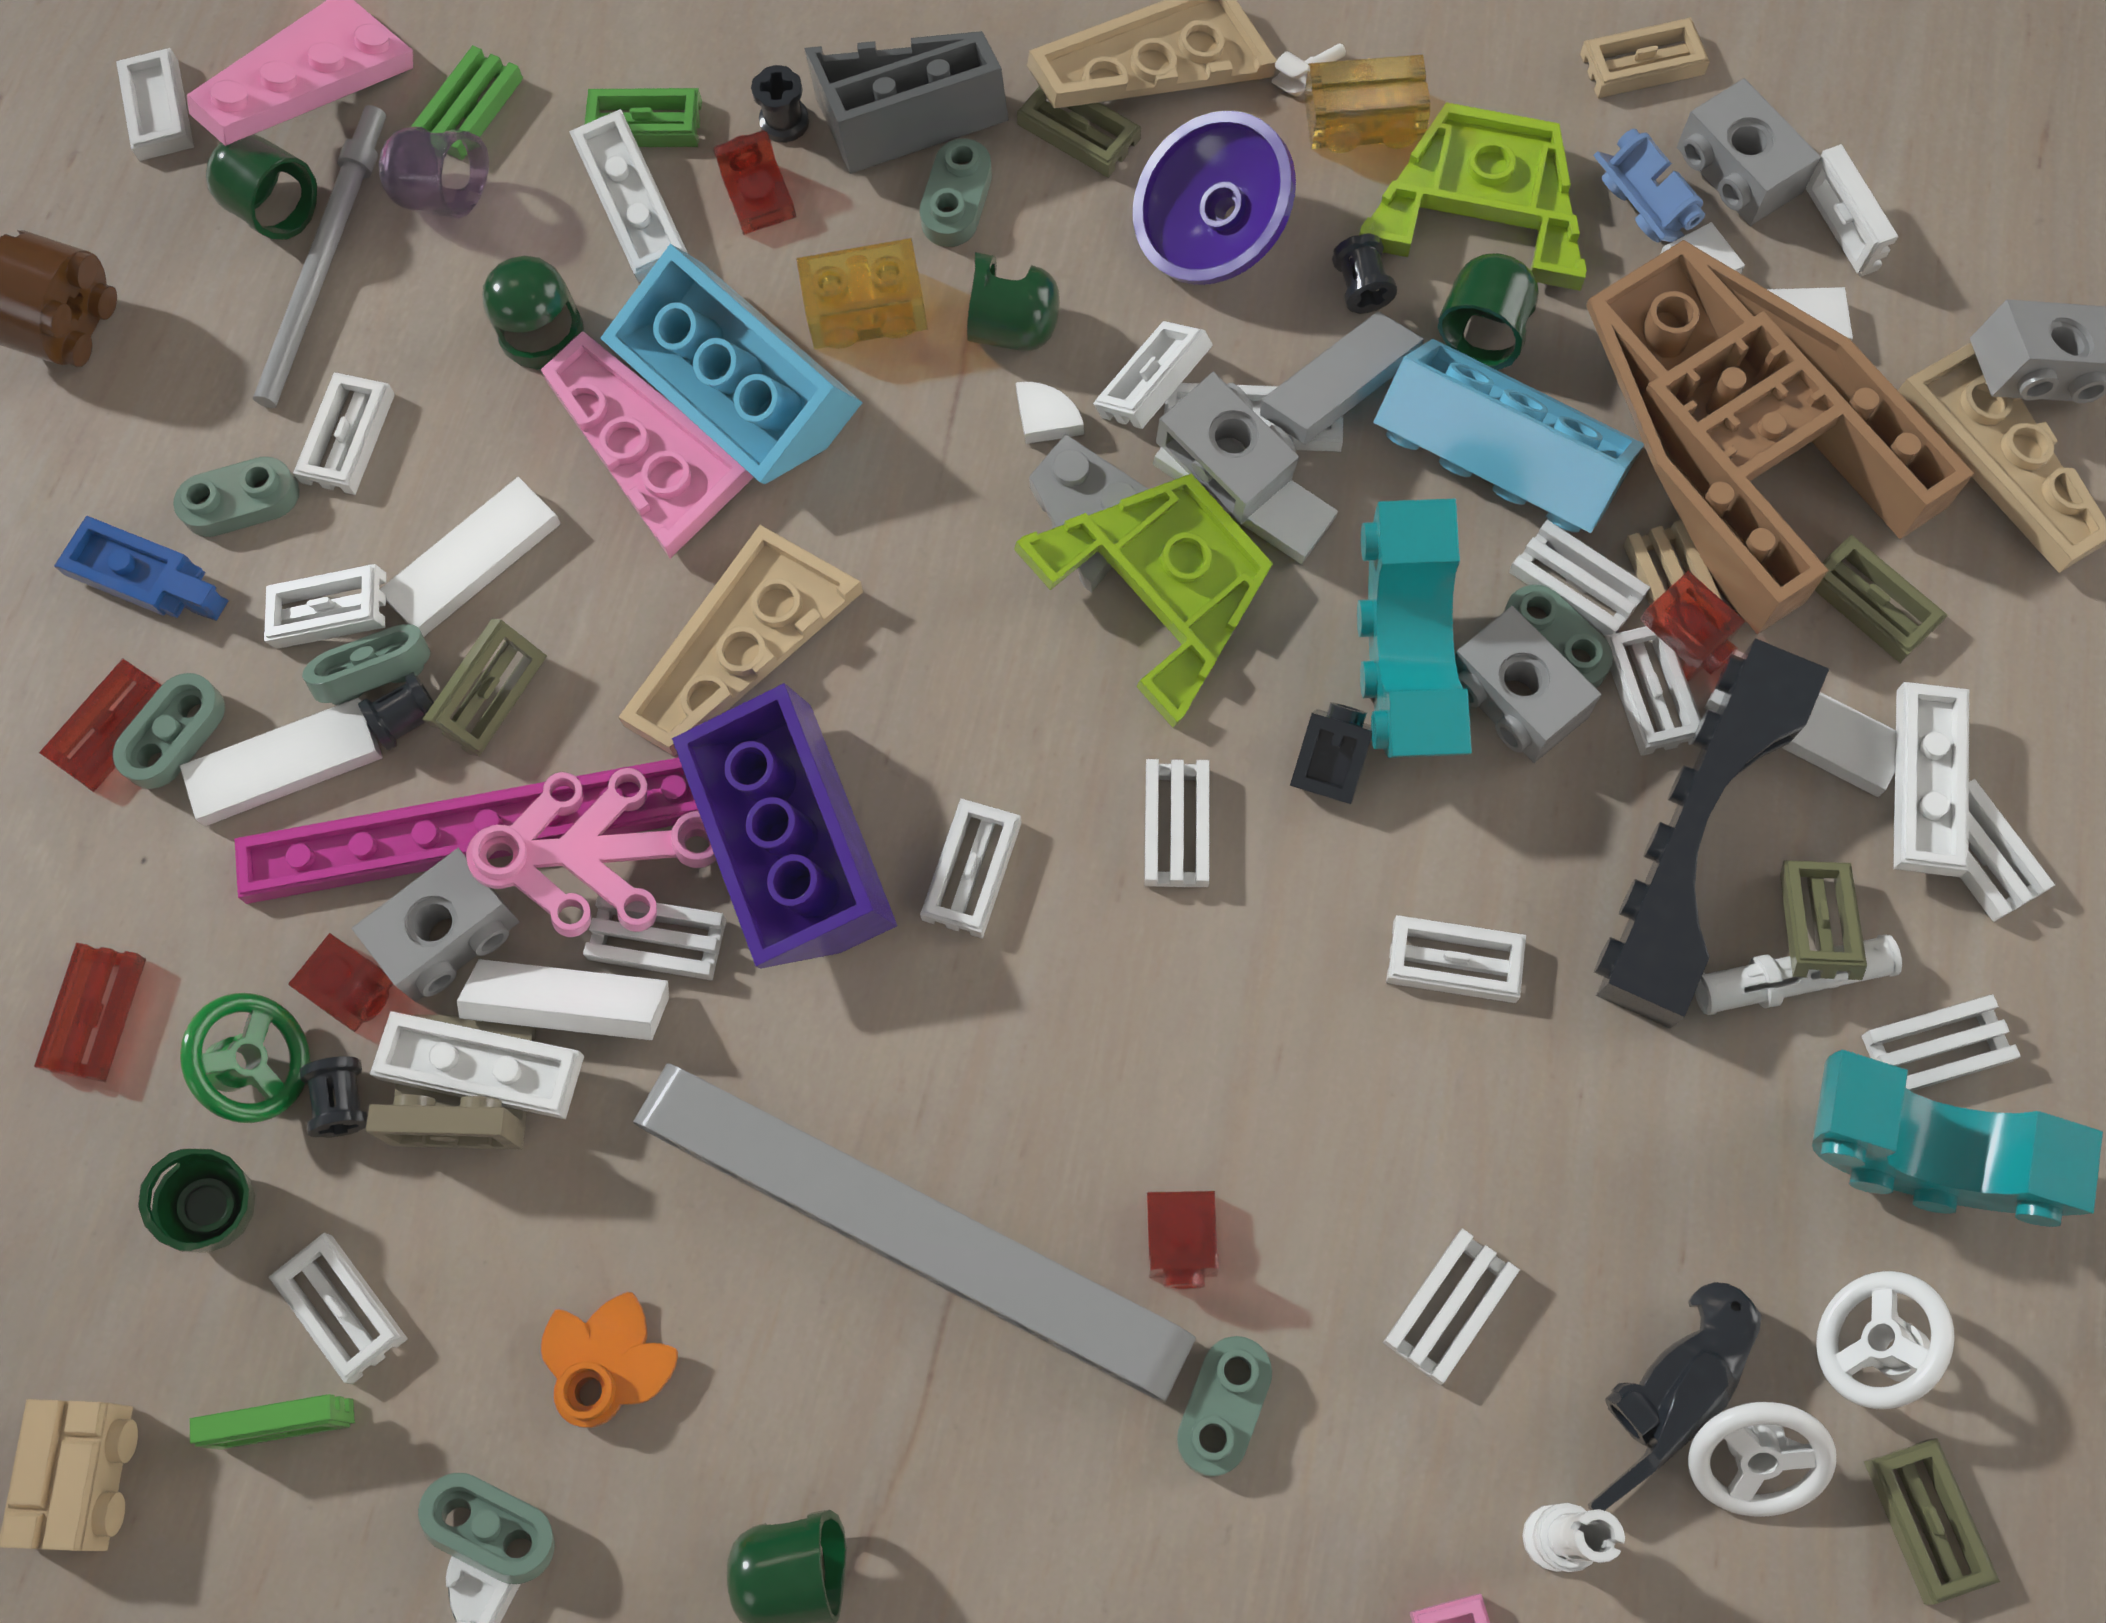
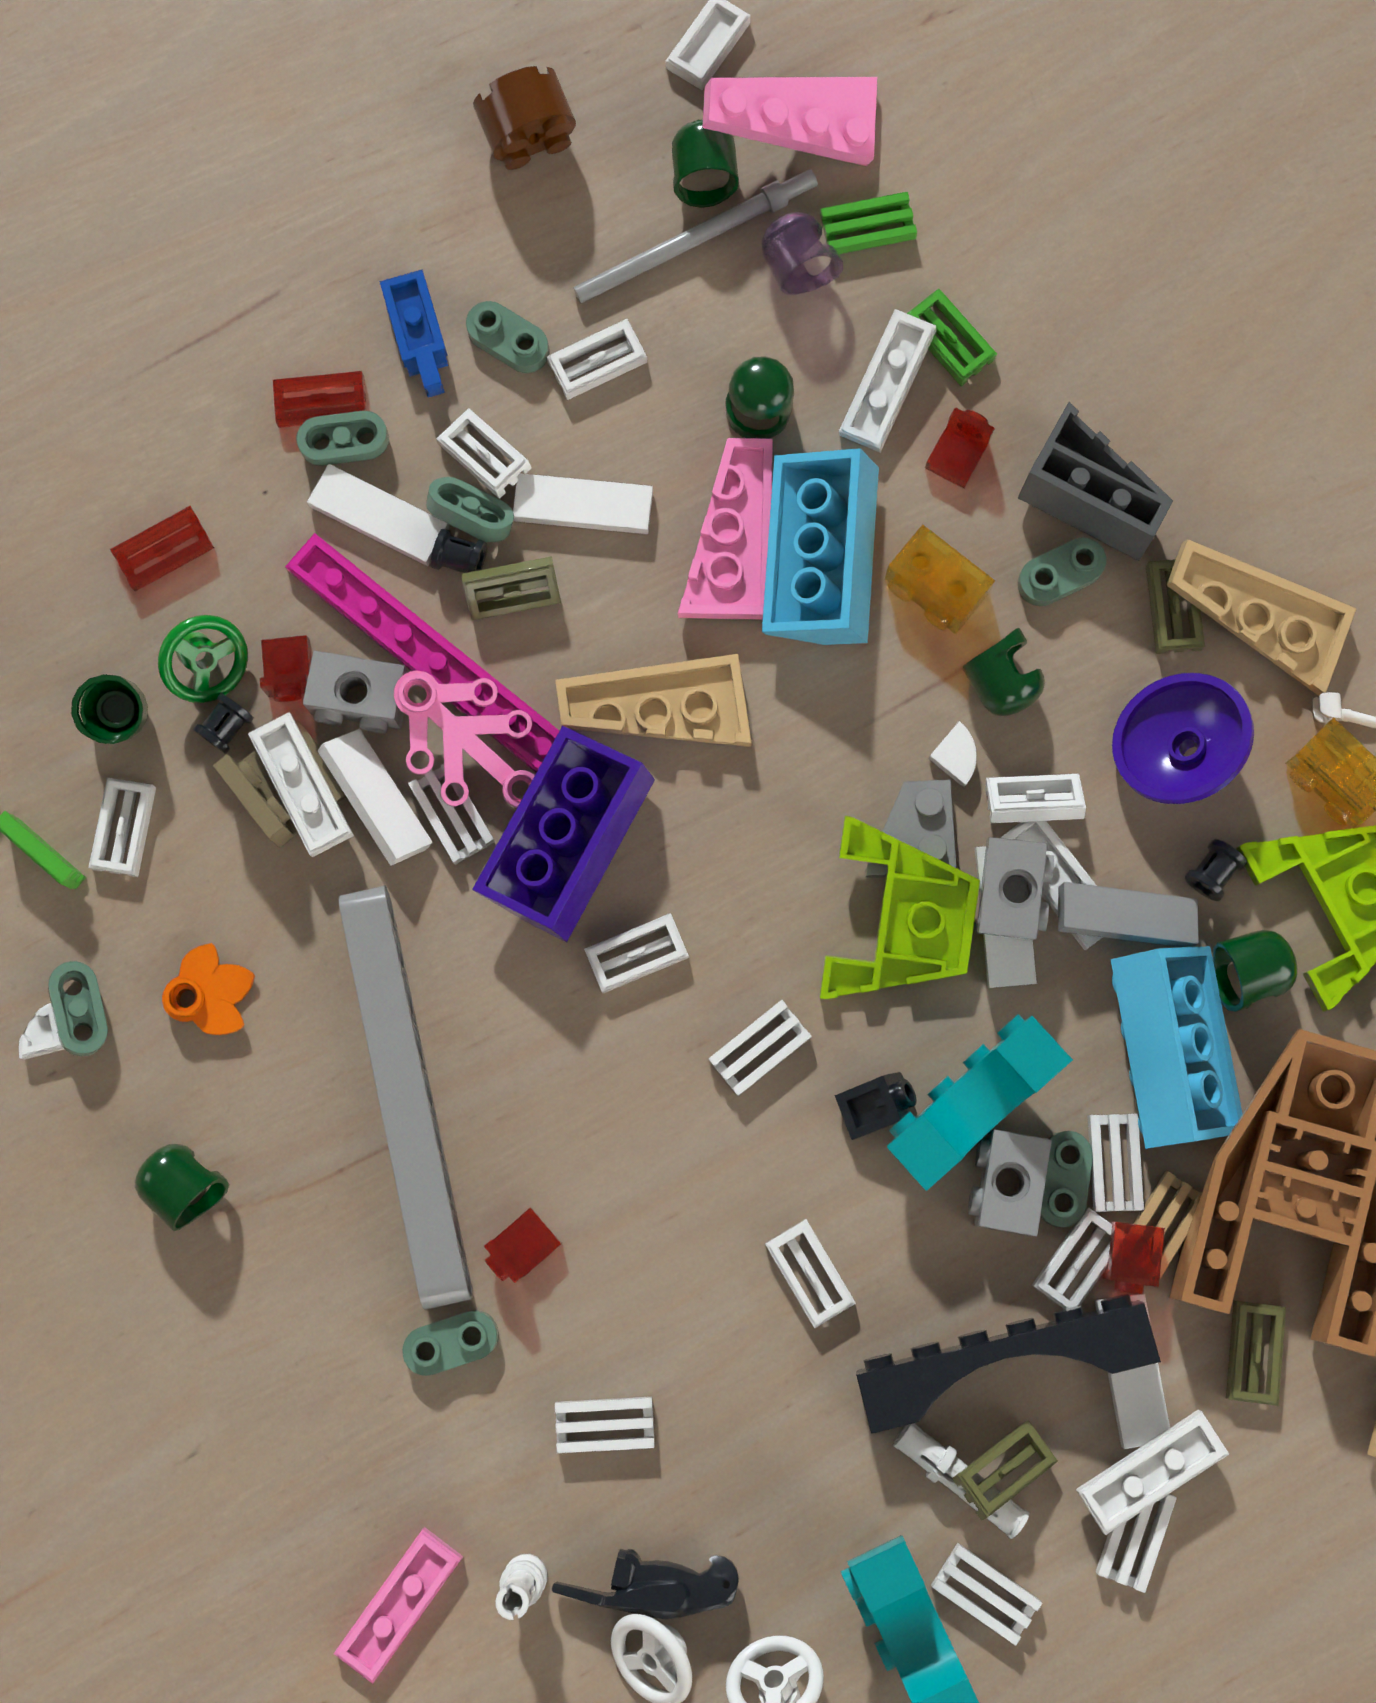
camera: 50 degrees right, 10 degrees up
(779, 95) = (1023, 402): black bush -> none

